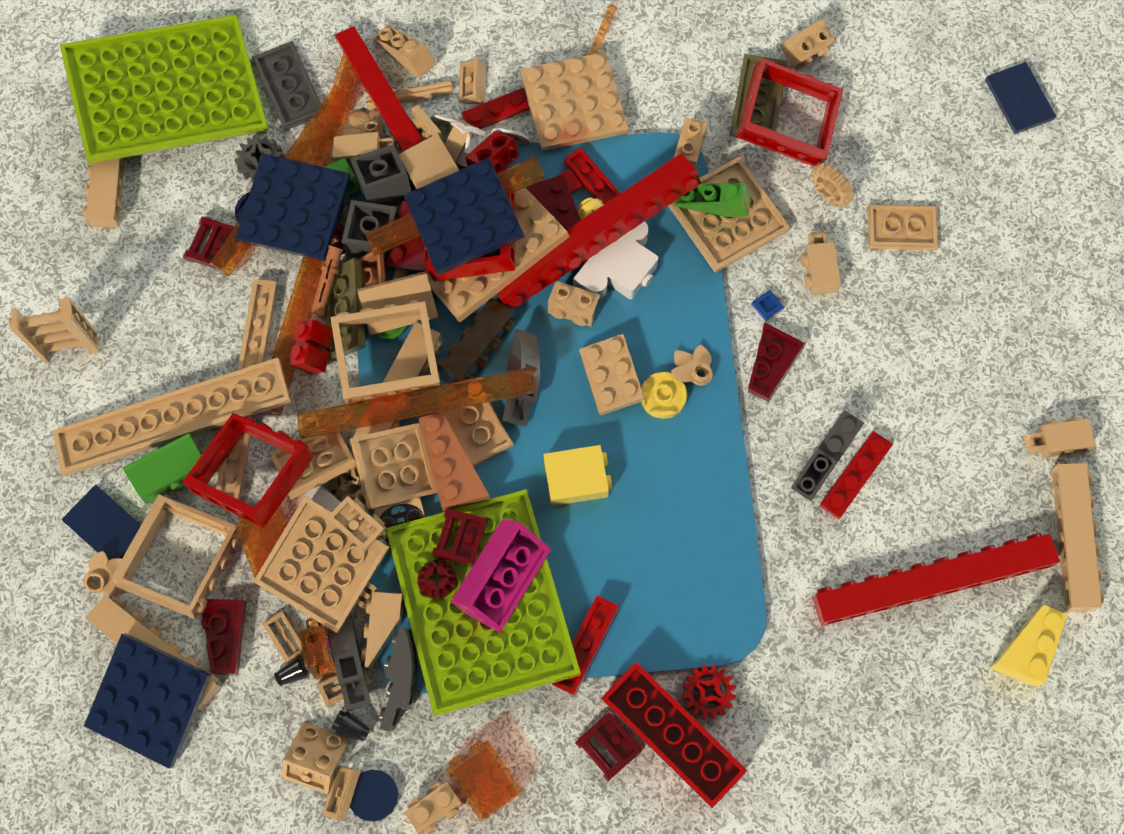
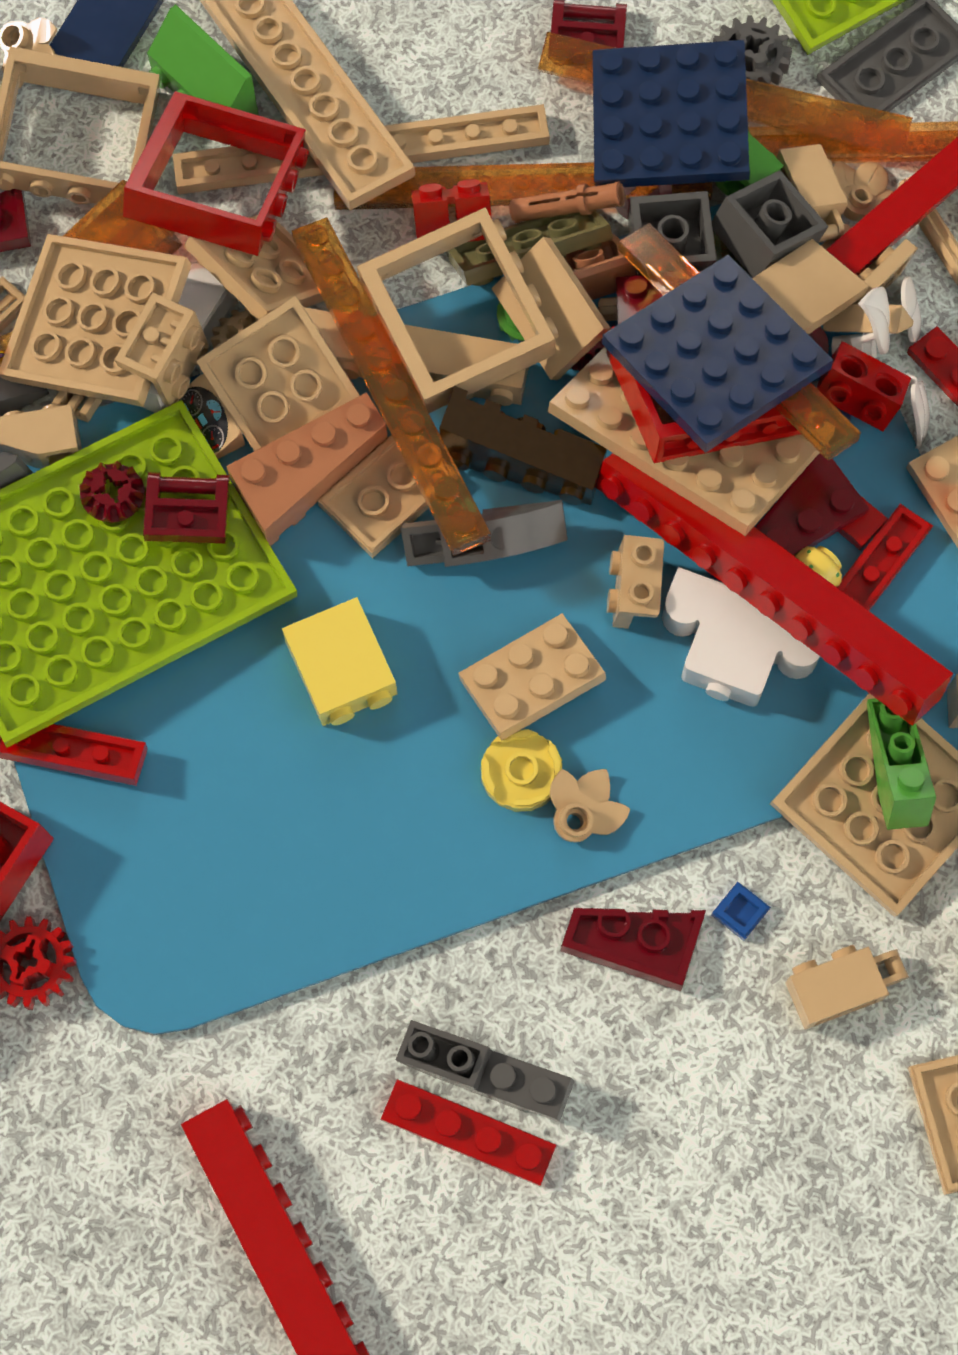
camera: 75 degrees right, 0 degrees up
(501, 574) = (135, 581): dark pink slope -> none

